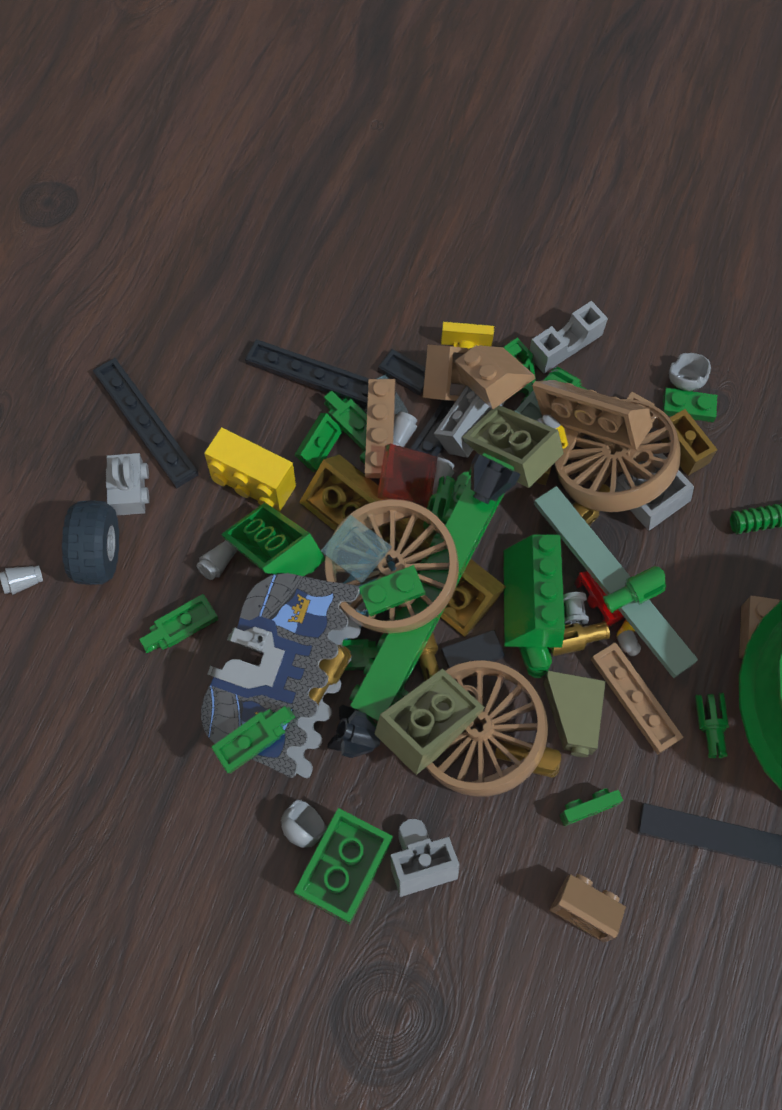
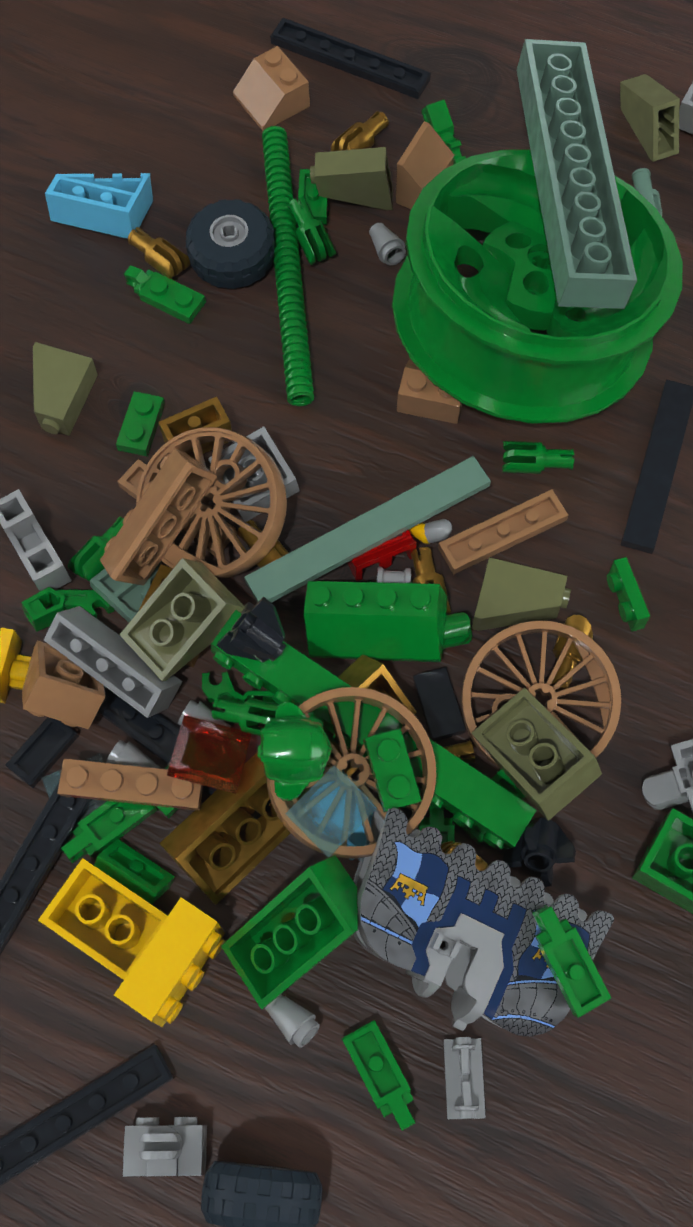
camera: 80 degrees left, 0 degrees up
(177, 686) = (464, 1078): none -> light grey hinge
(281, 419) = (103, 918): none -> yellow brick
(302, 824) = (650, 920): light grey hair -> none
(396, 509) = (293, 750): none -> green piece
(492, 373) = (85, 628): medium nougat slope -> none
(552, 422) = (157, 574): arm -> none
(637, 589) = (390, 502): green arm -> none
(690, 371) = (100, 413): light grey hair -> none
(712, 337) = (60, 387): none -> olive slope

